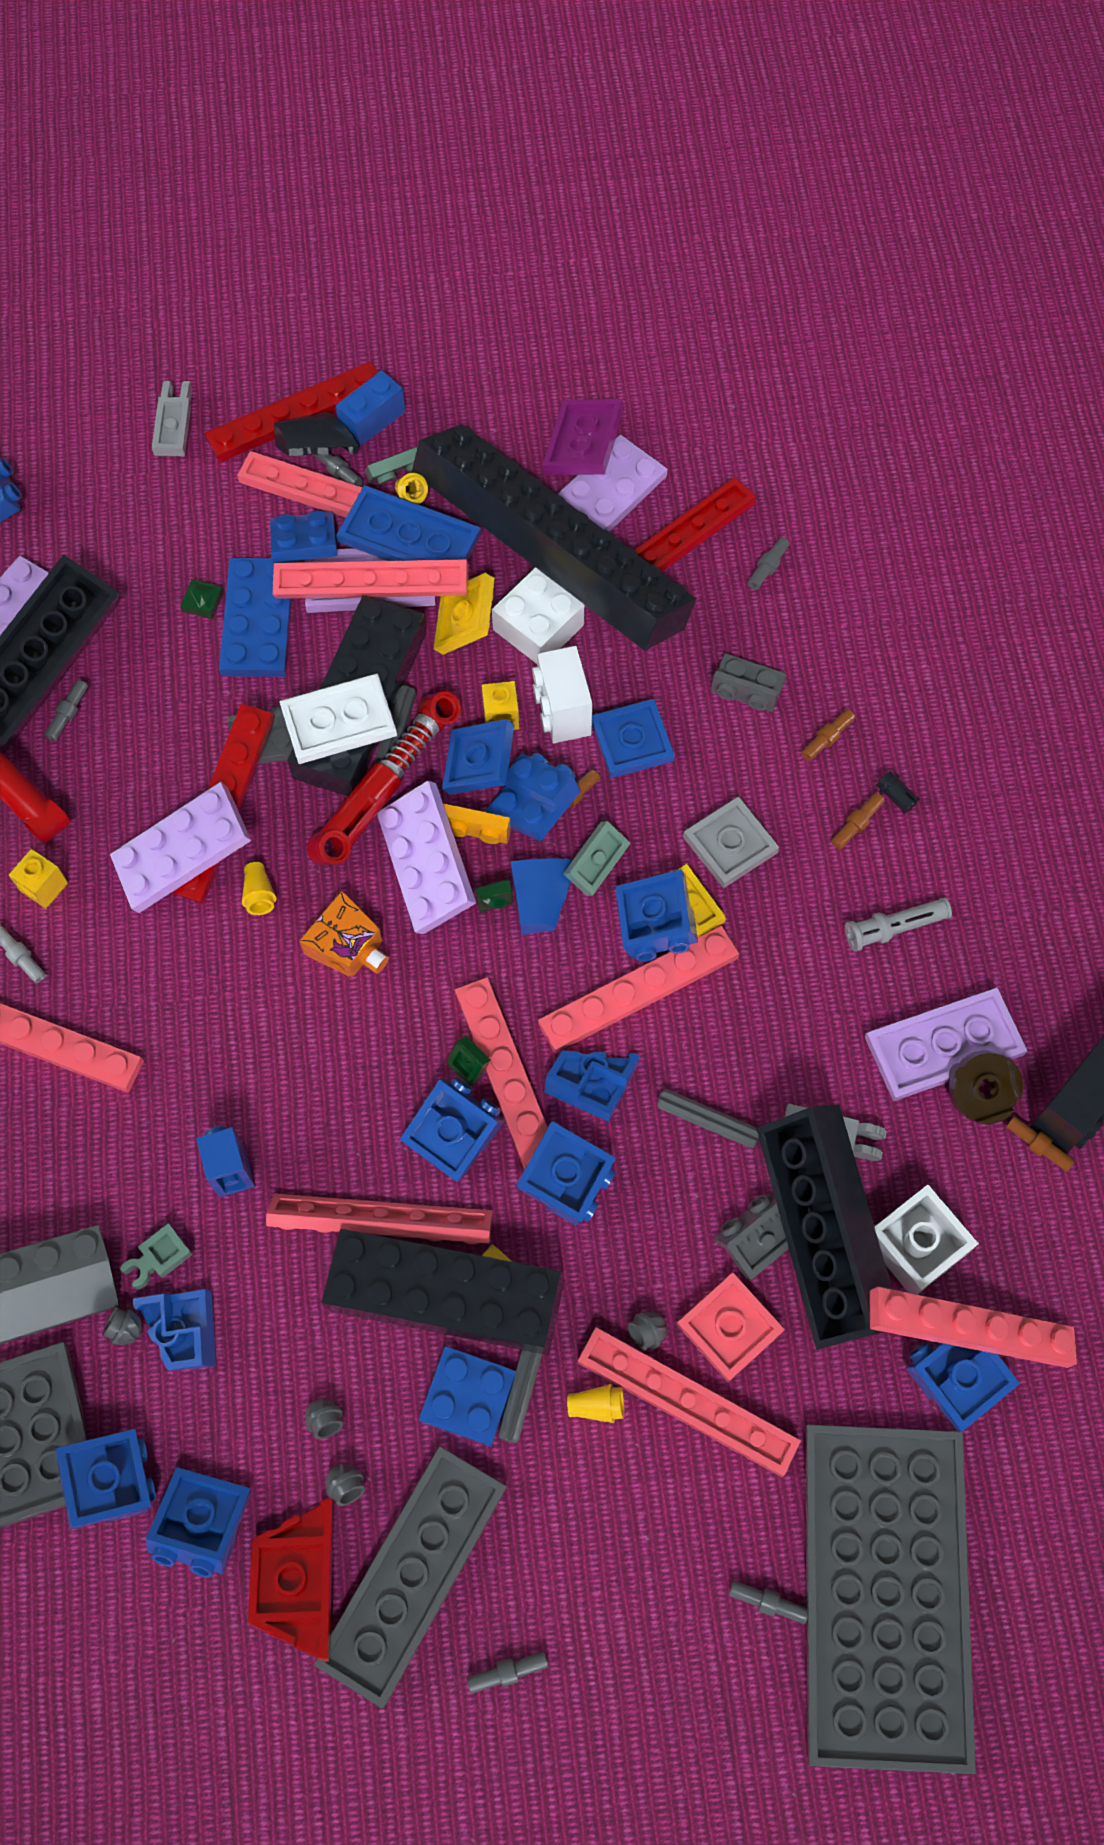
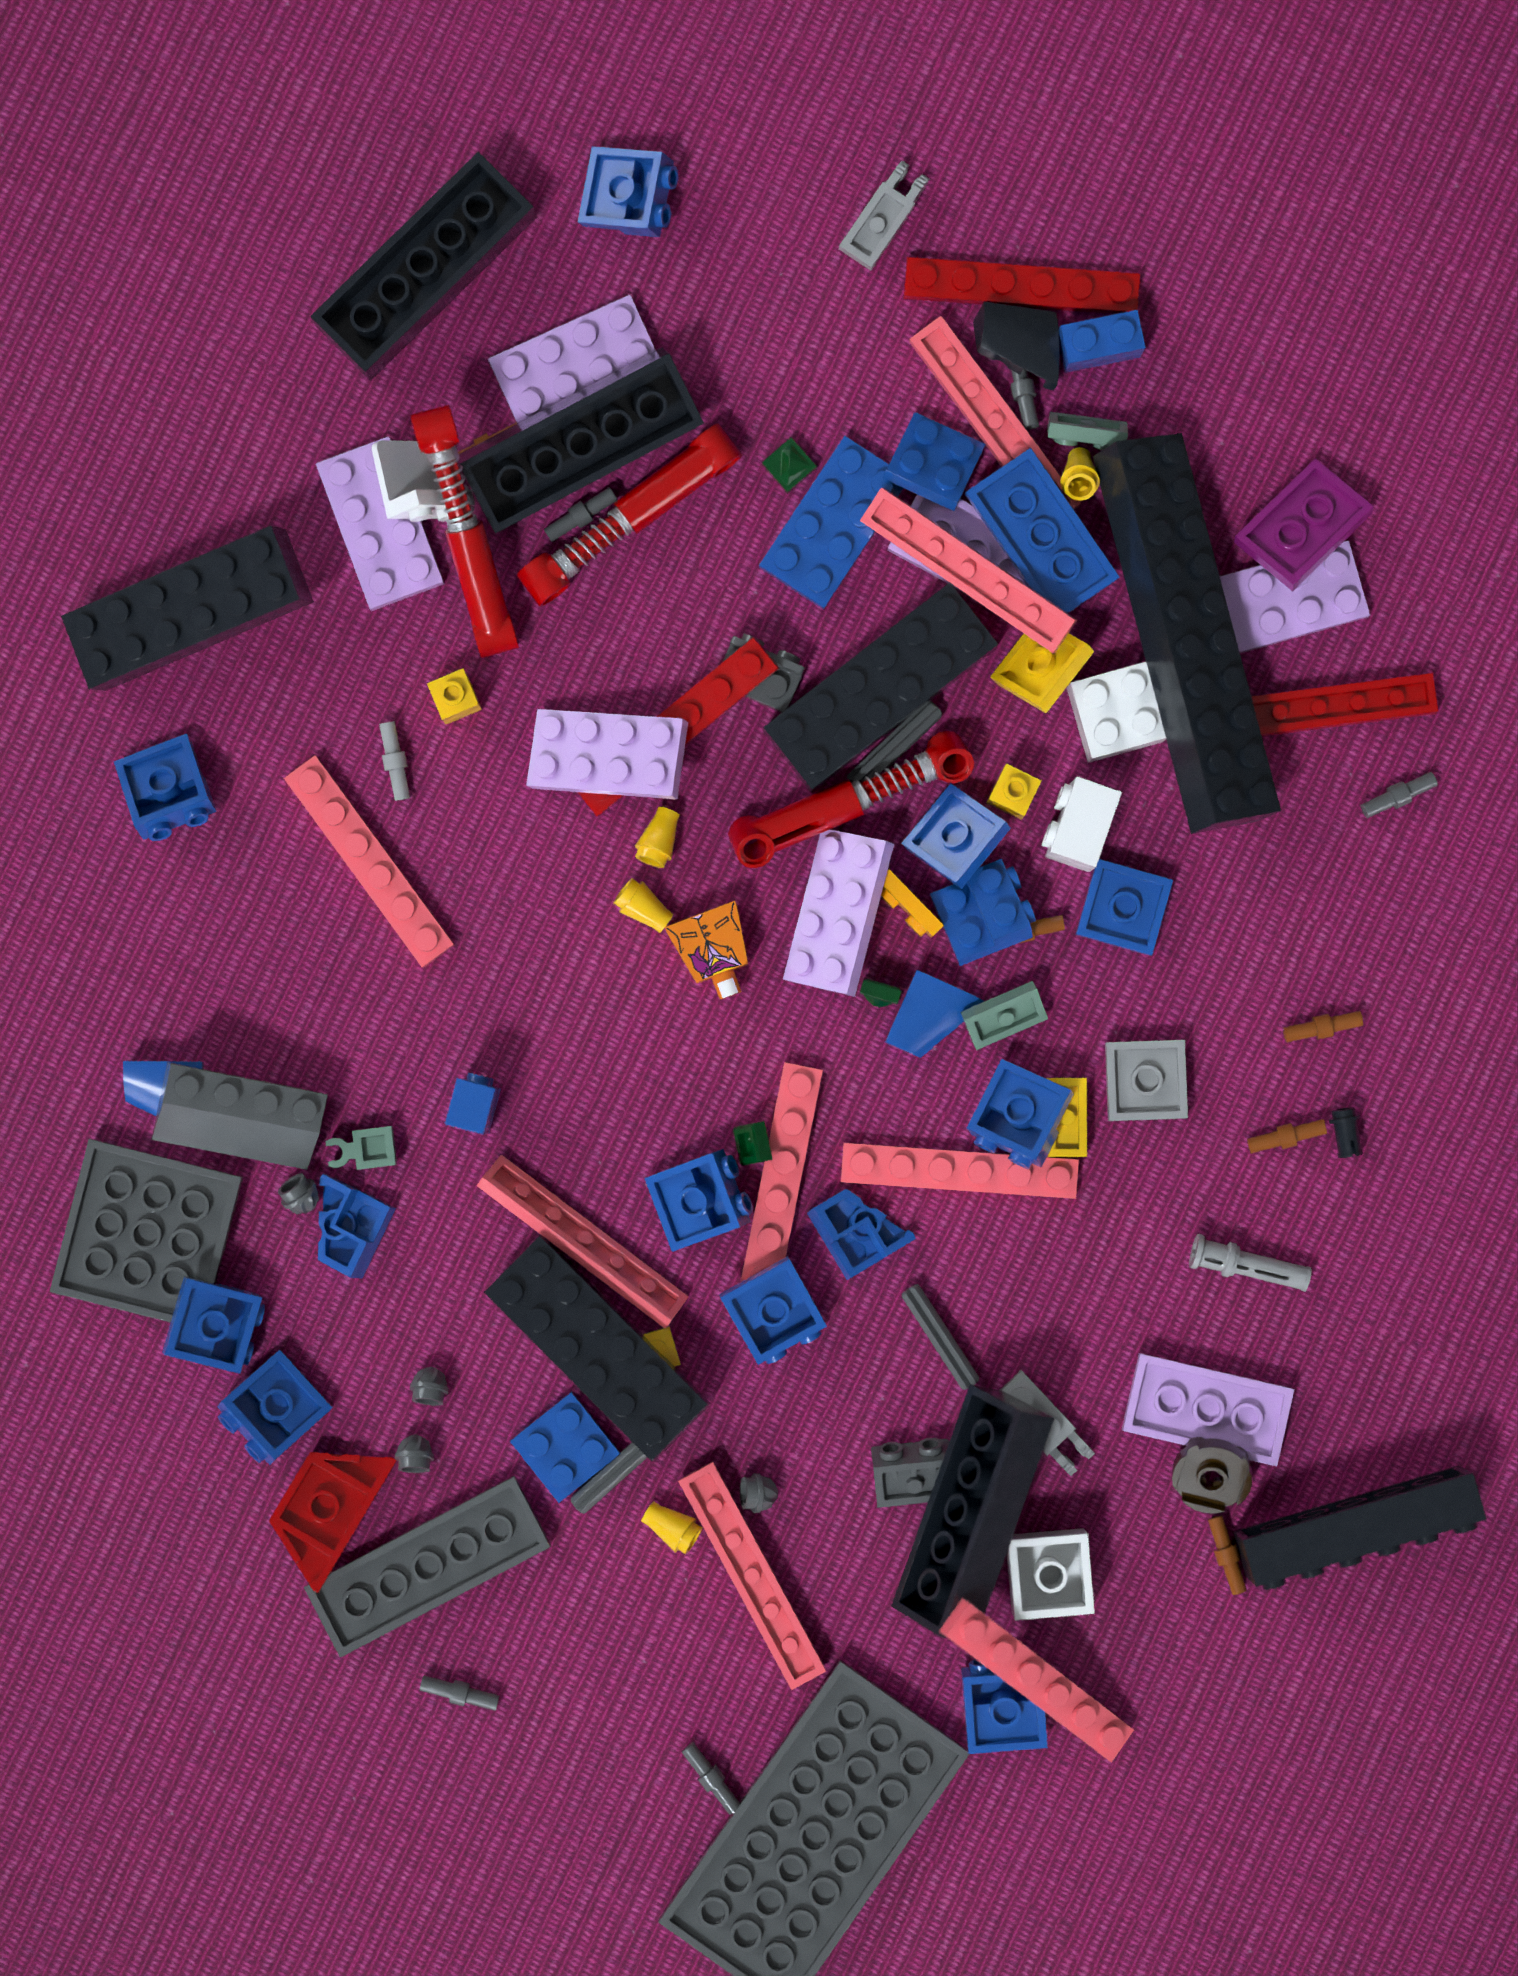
camera: 35 degrees right, 20 degrees up
(136, 623) = (704, 459): none -> red piece
(273, 942) = (642, 905): none -> yellow cone
(338, 718) = (838, 717): white tile -> none
(730, 1327) = (831, 1536): coral plate -> none
(748, 683) = (1283, 918): dark grey bracket -> none

